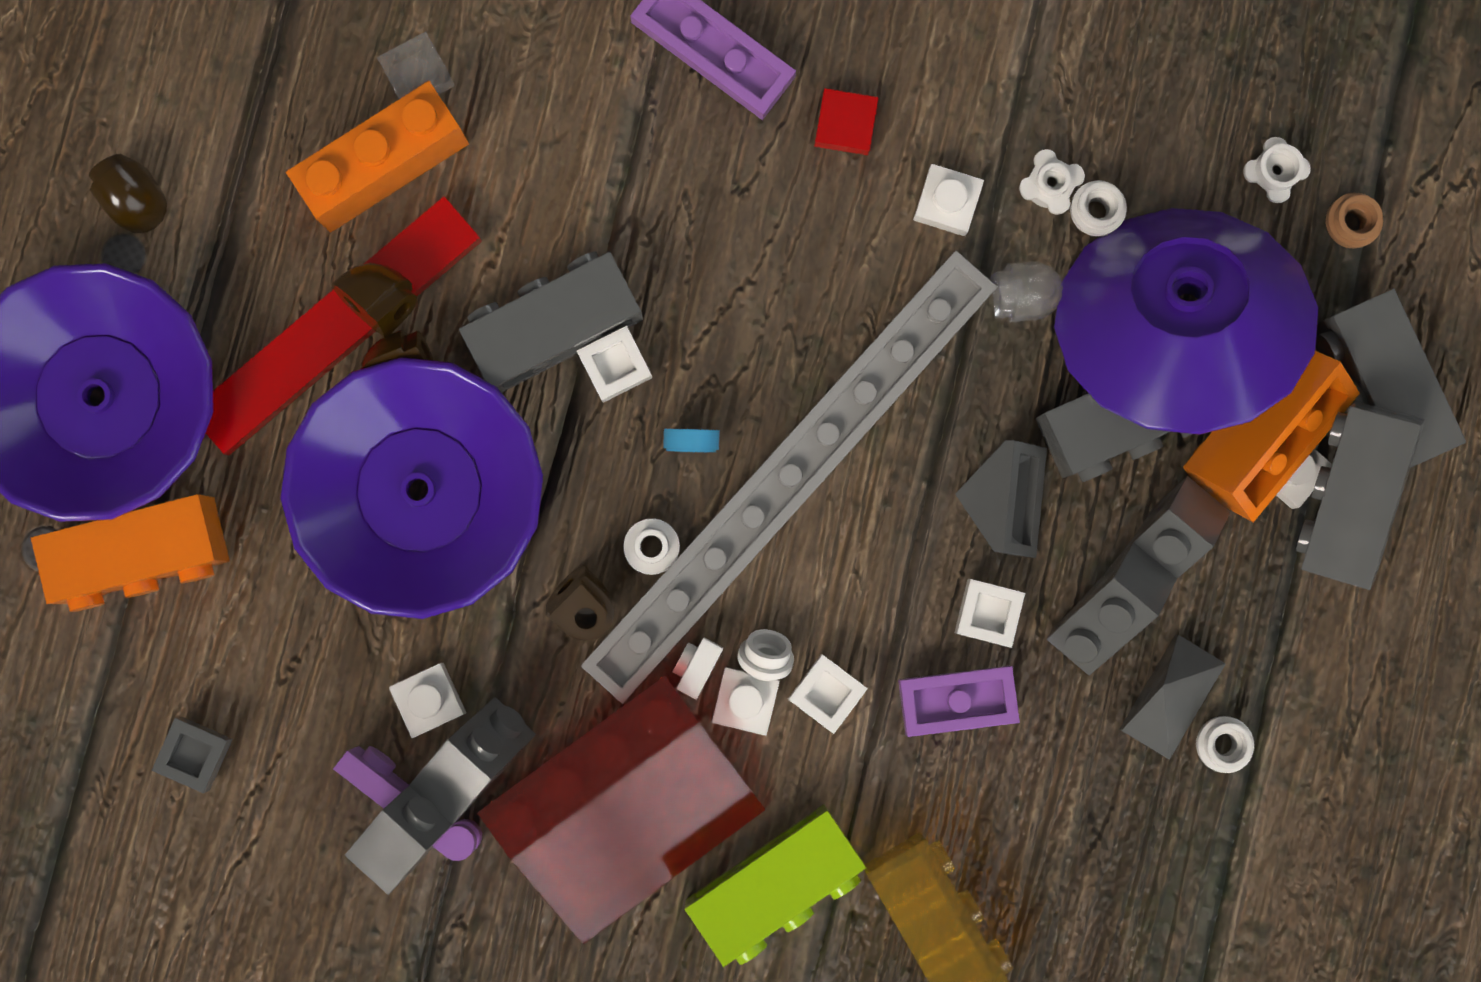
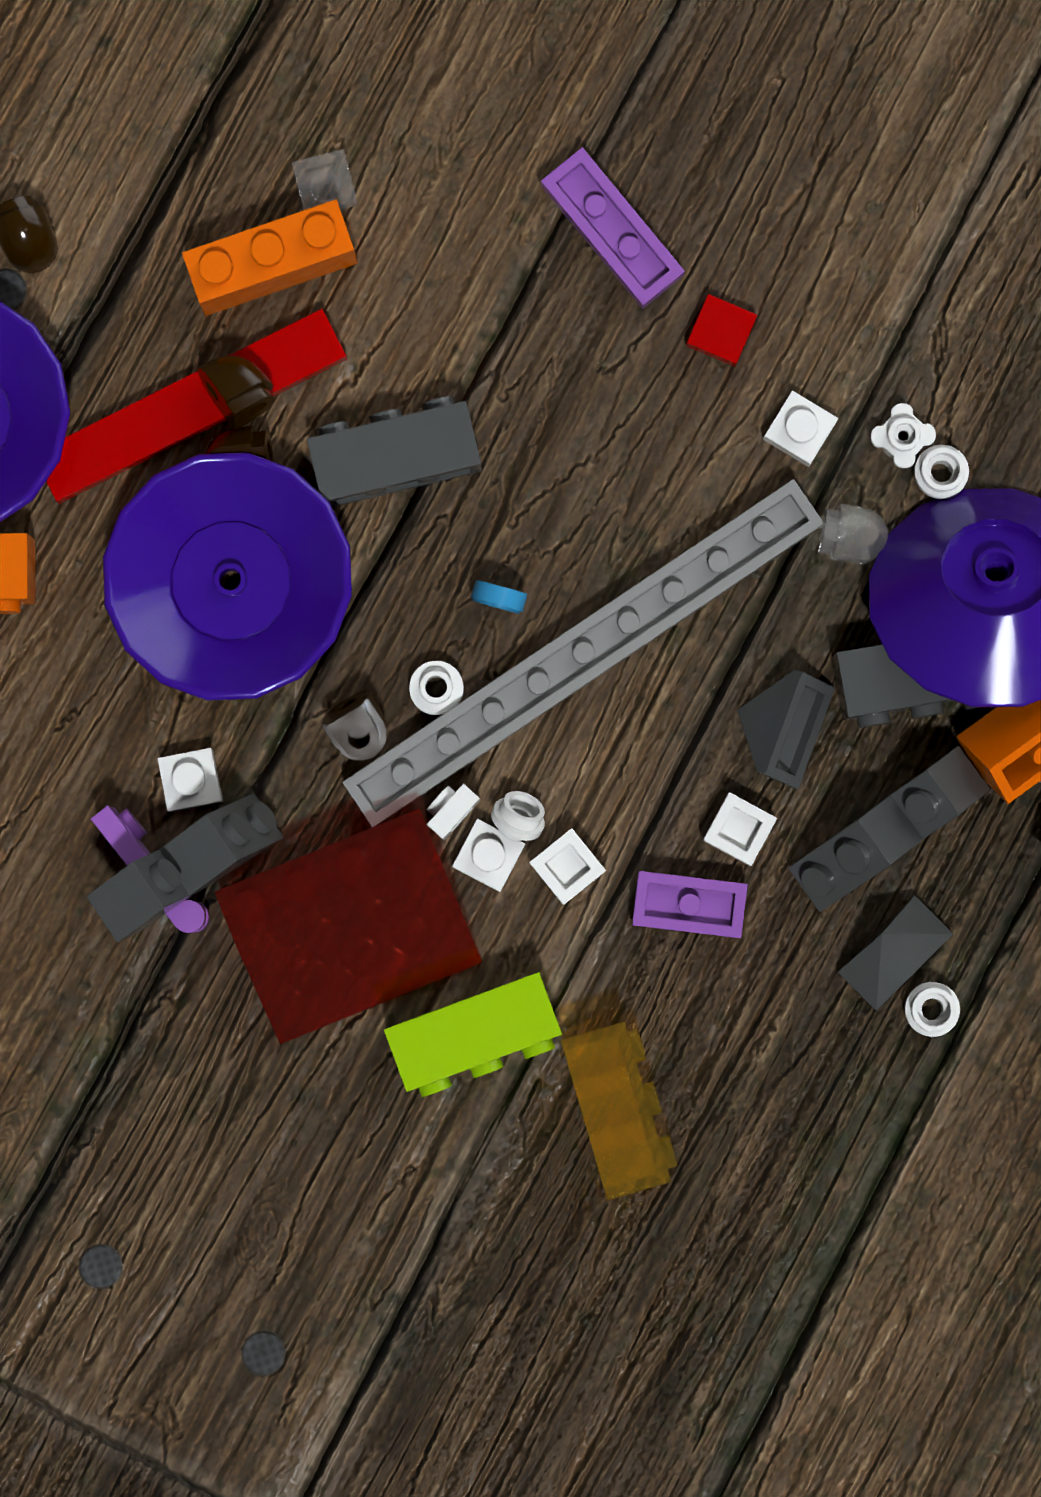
camera: 25 degrees right, 0 degrees up
(614, 364) = (444, 507): white plate -> none

